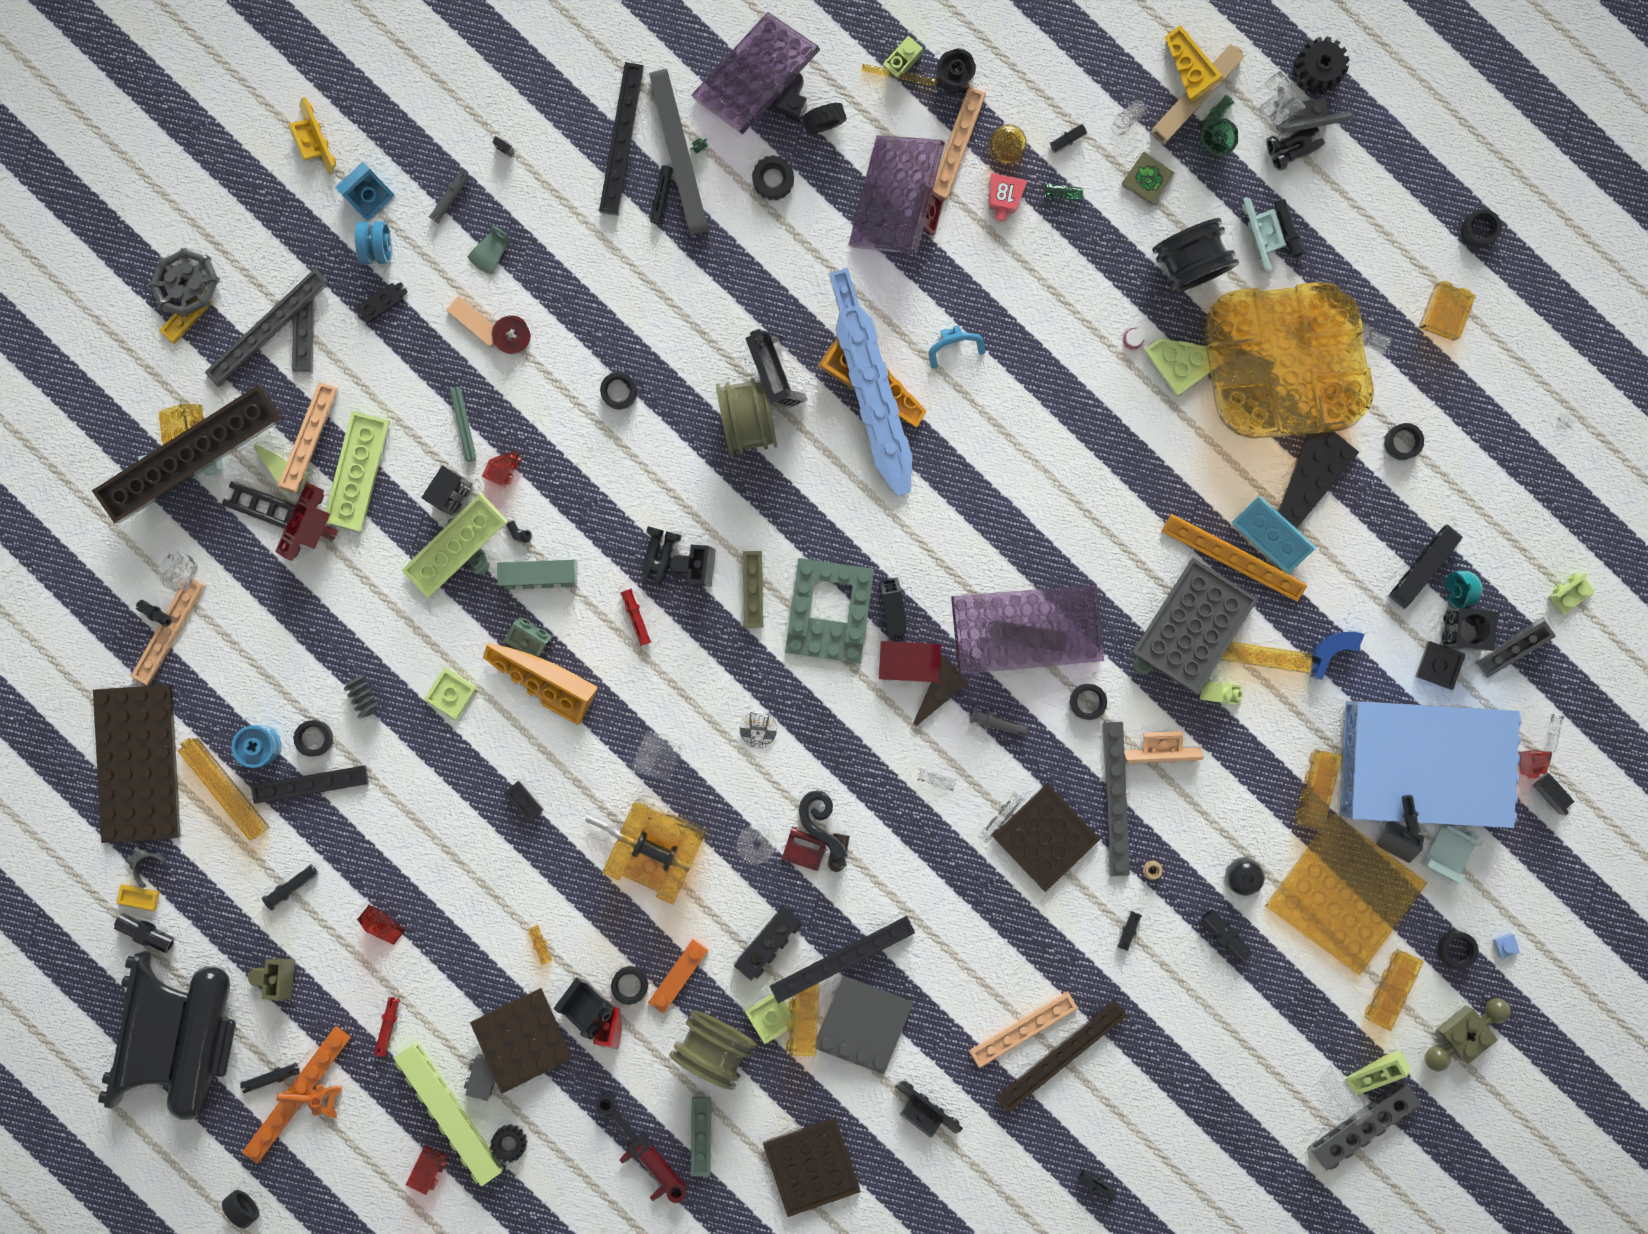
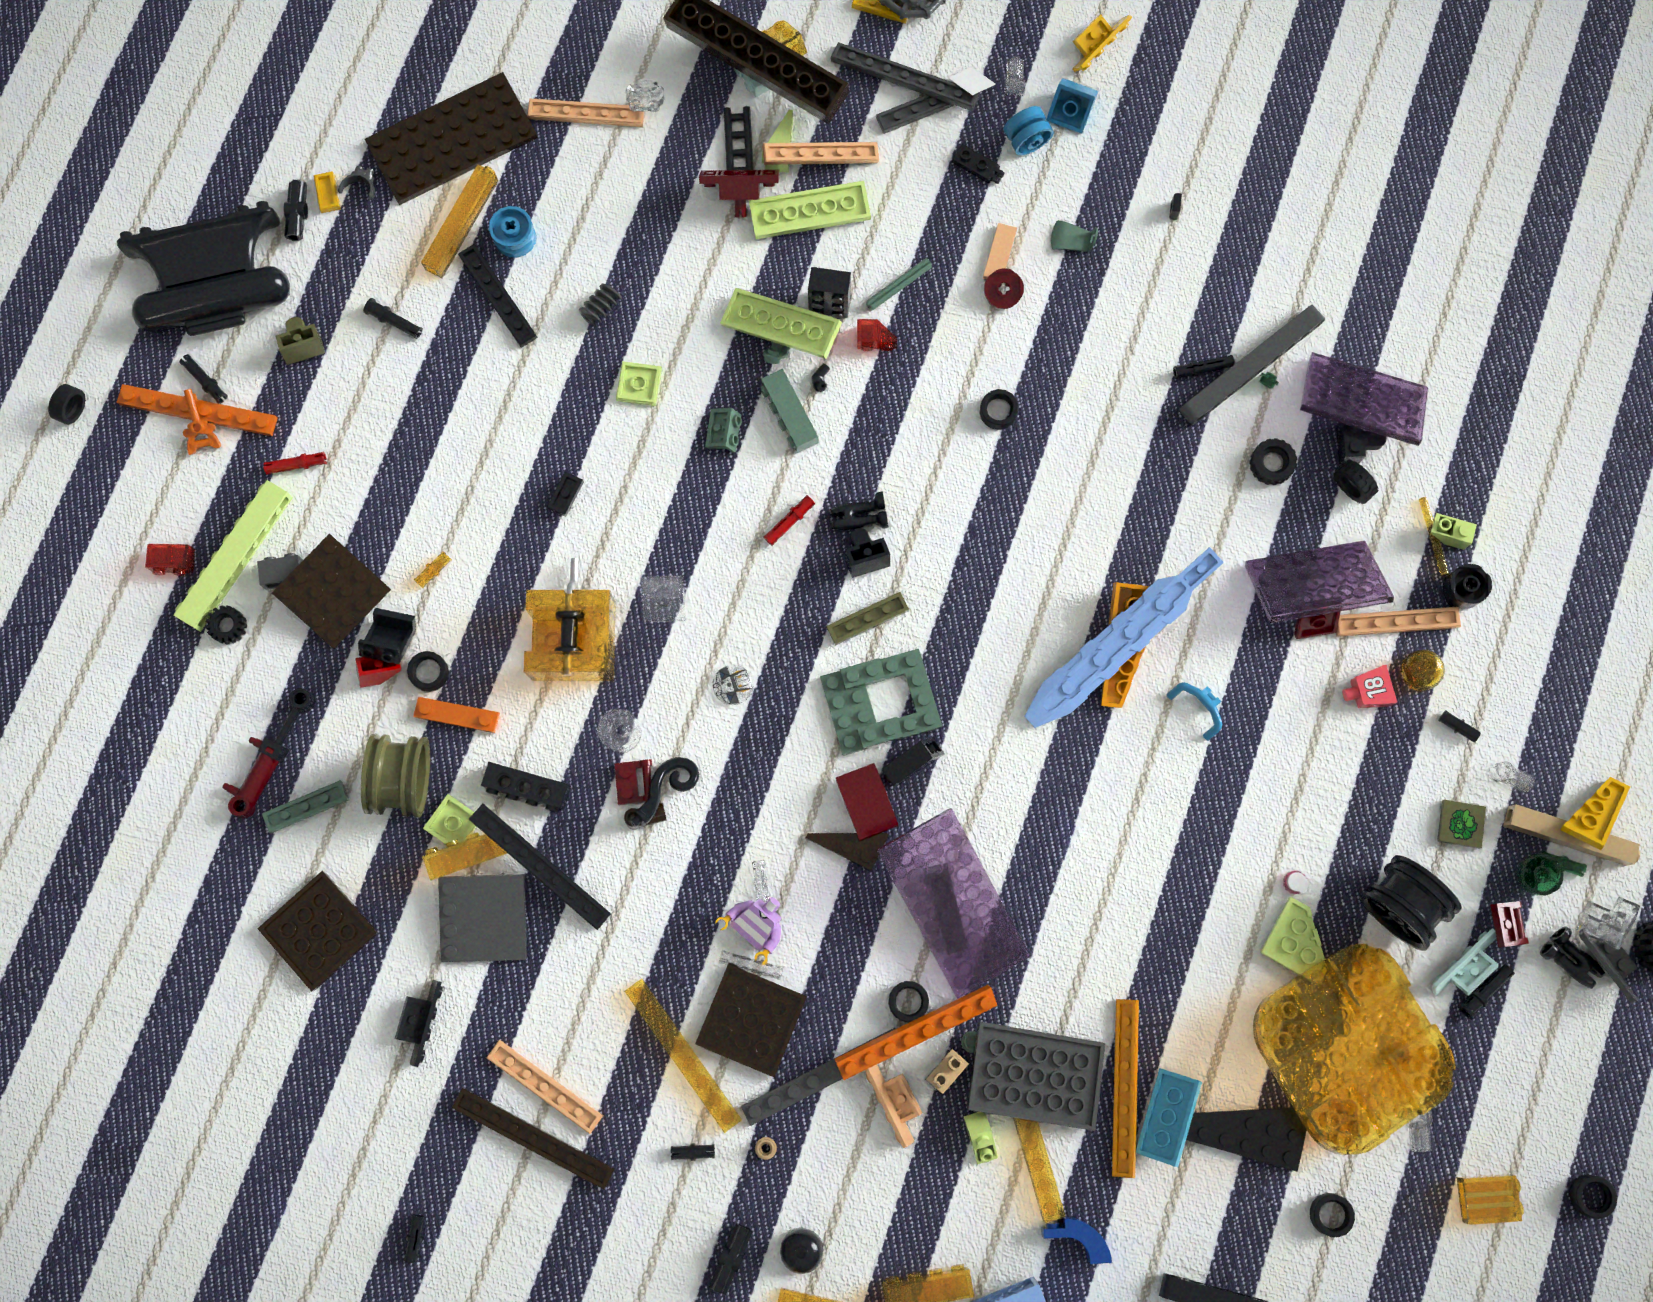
camera: 70 degrees right, 10 degrees down
(154, 613) = (596, 92): black pin -> none
(298, 742) = (542, 264): black tyre -> none
(299, 269) = (971, 81): none -> white sticker
(316, 230) = (1014, 82): none -> clear piece
(380, 924) = (390, 414): clear red slope -> none
(449, 196) = (1105, 180): dark grey pin -> none
(552, 684) = (688, 477): light orange wedge -> none
(621, 138) = (1237, 308): black plate -> none
(746, 416) = (1033, 532): olive wheel -> none
(770, 369) = (1089, 535): black panel -> none
(971, 798) = (757, 924): none -> lavender torso
(989, 720) = (845, 916): dark grey pin -> none
(1049, 905) = (683, 1055): none -> clear yellow plate
(1063, 191) = (1405, 745): clear green axle -> none
(1116, 707) = (915, 1032): none -> orange plate
(1159, 693) = (946, 1071): none -> tan hips
(1245, 183) = (1508, 924): none -> dark red plate

